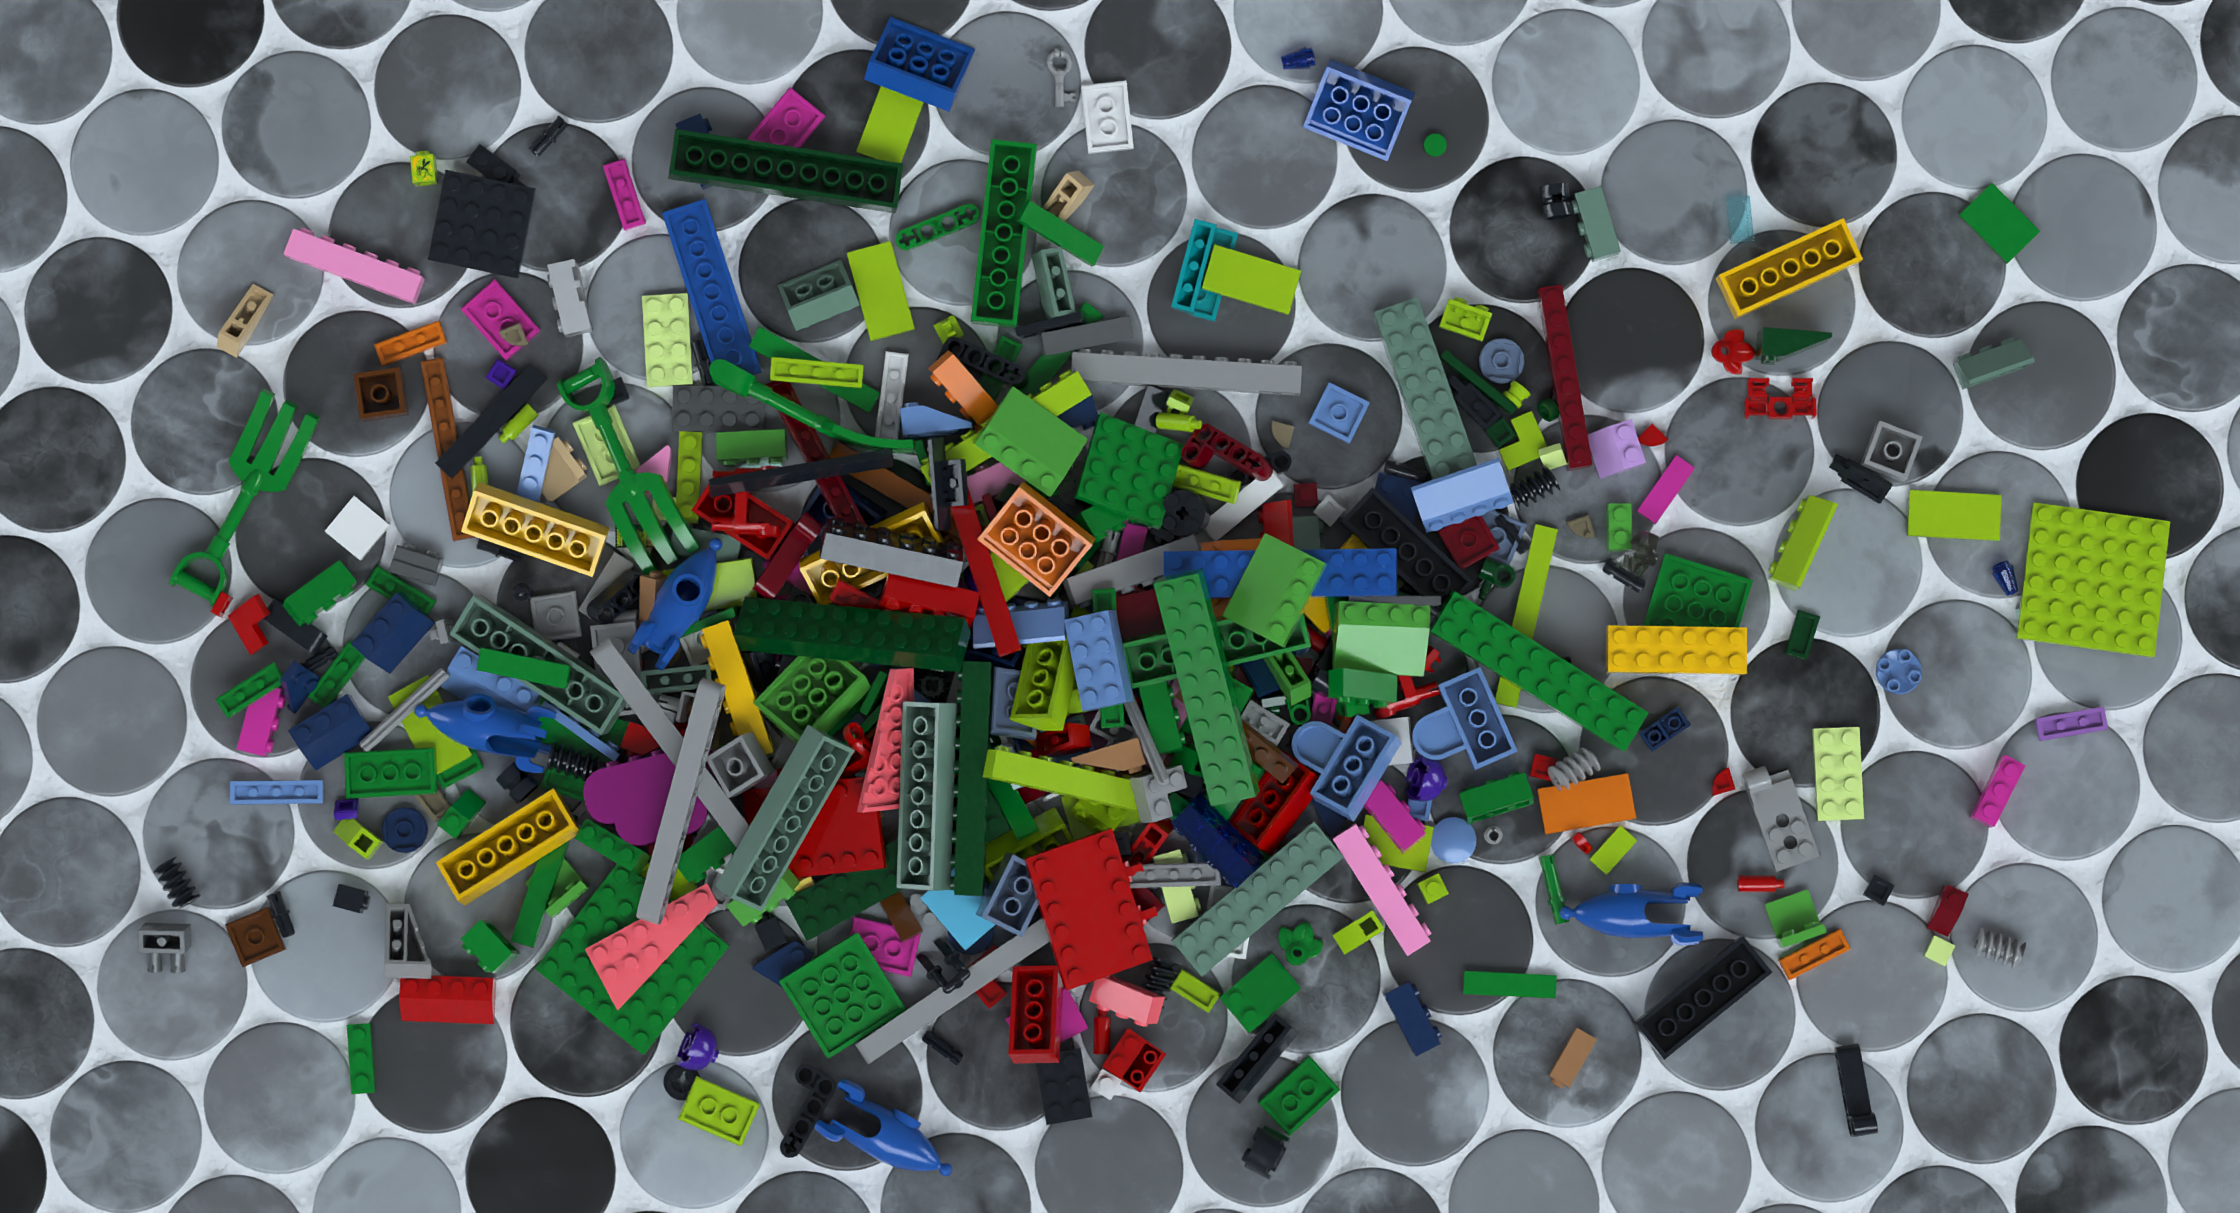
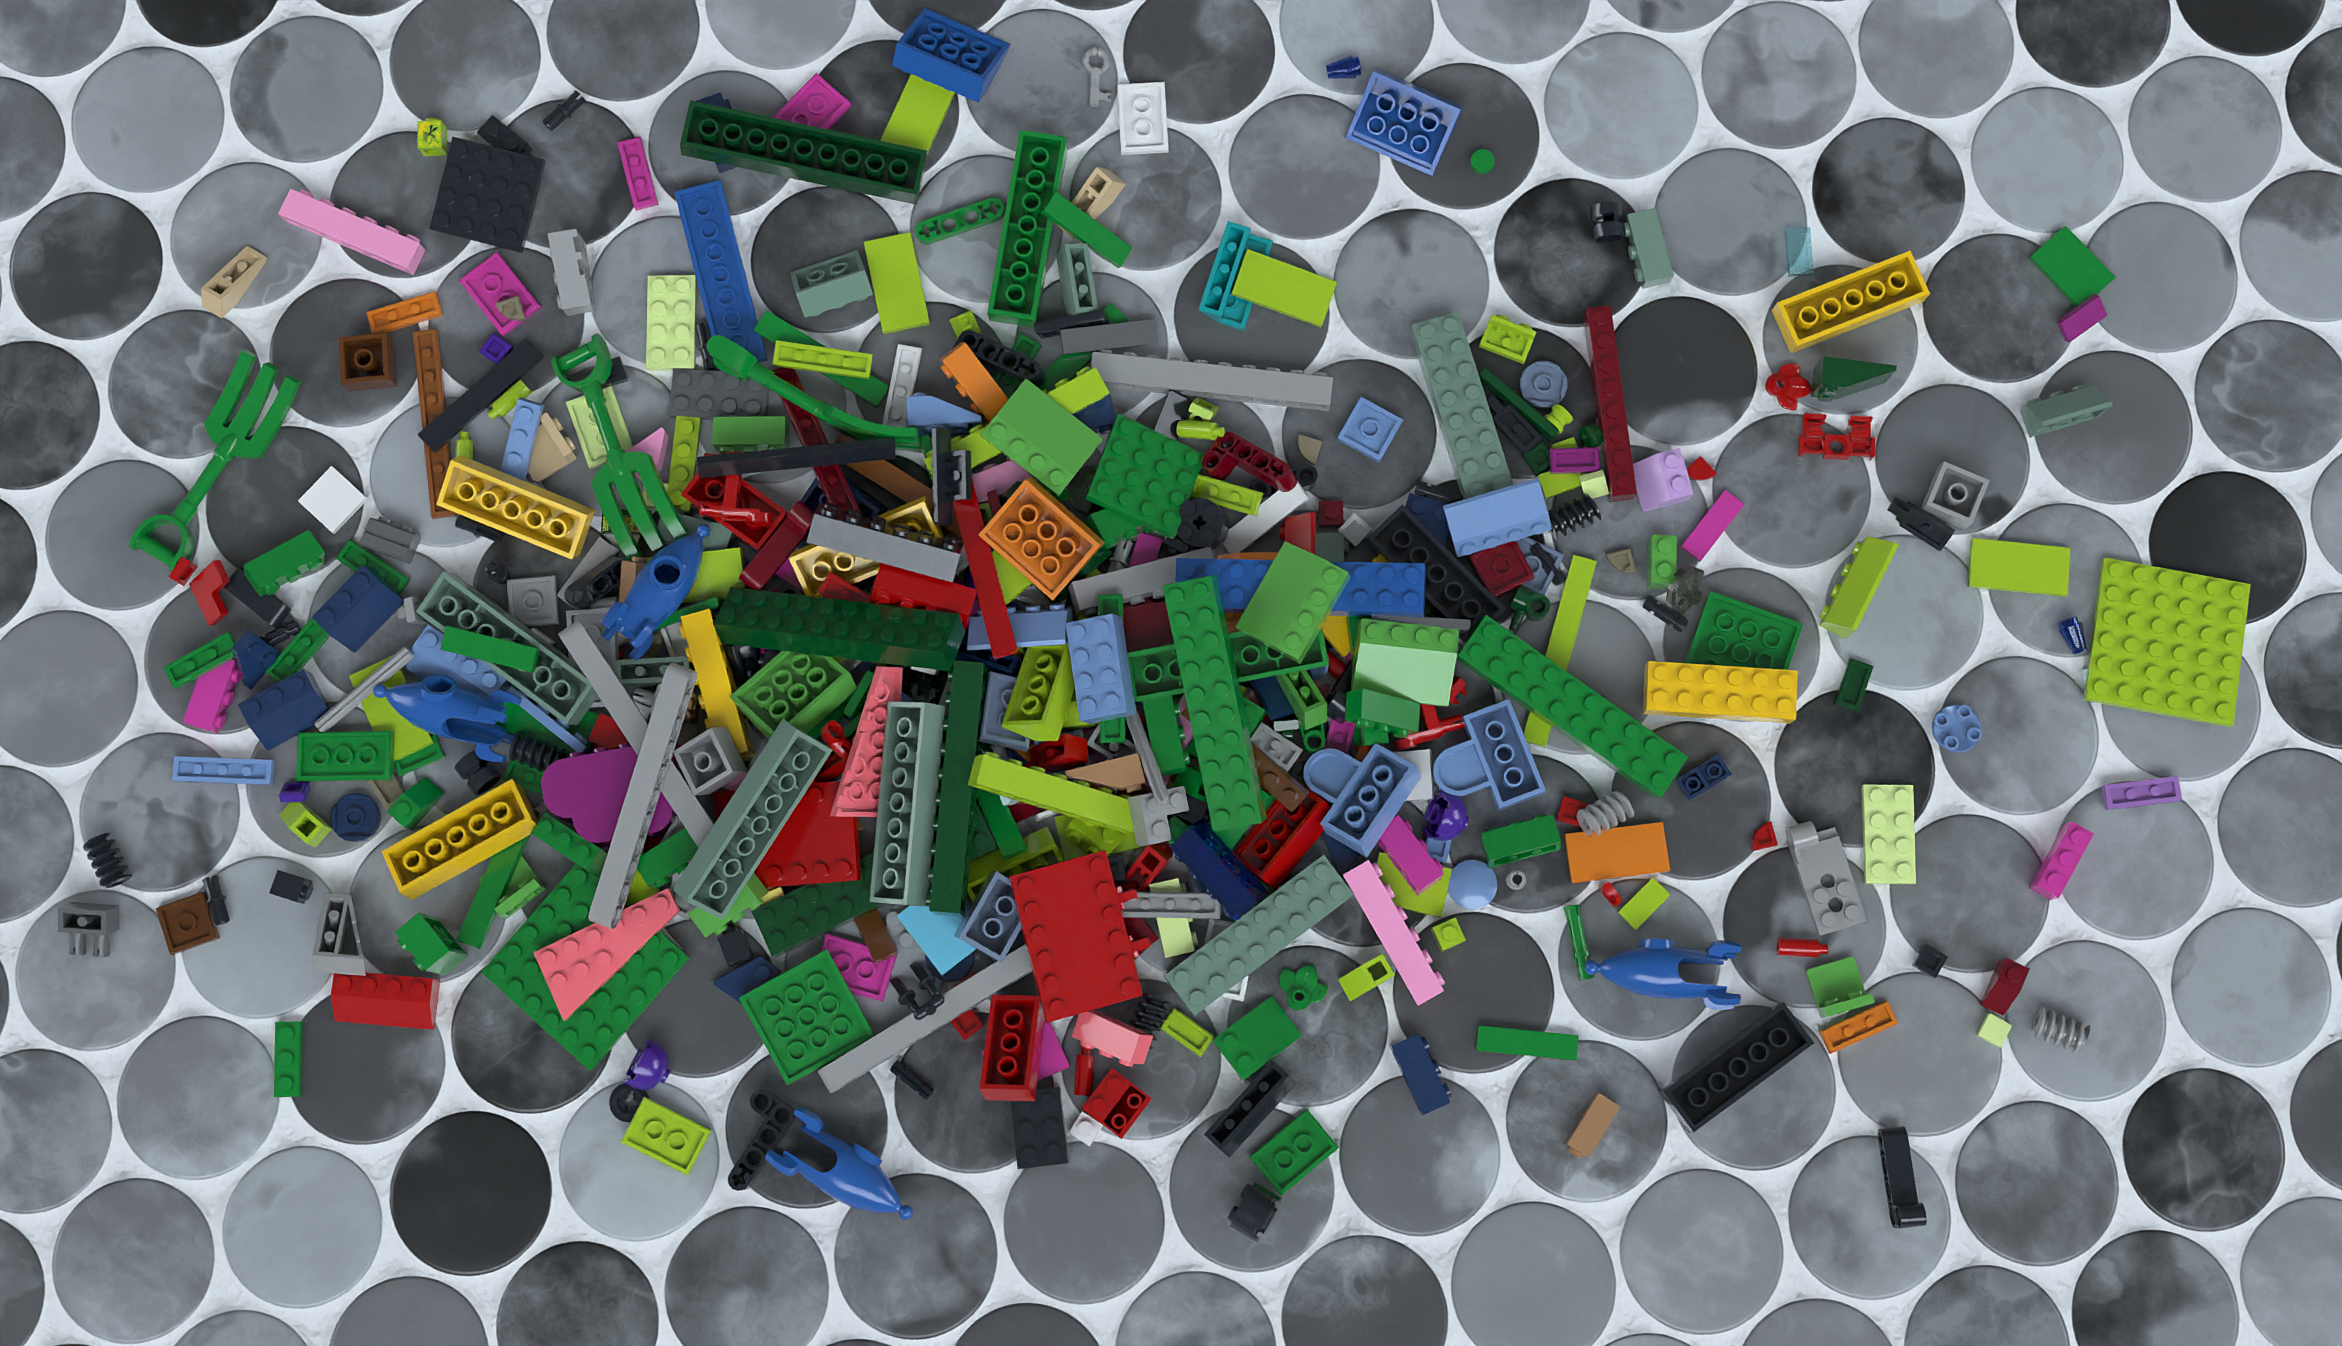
camera: 10 degrees right, 5 degrees down
(1533, 434) = (1574, 460): none -> magenta tile
(2008, 272) = (2081, 318): none -> magenta tile

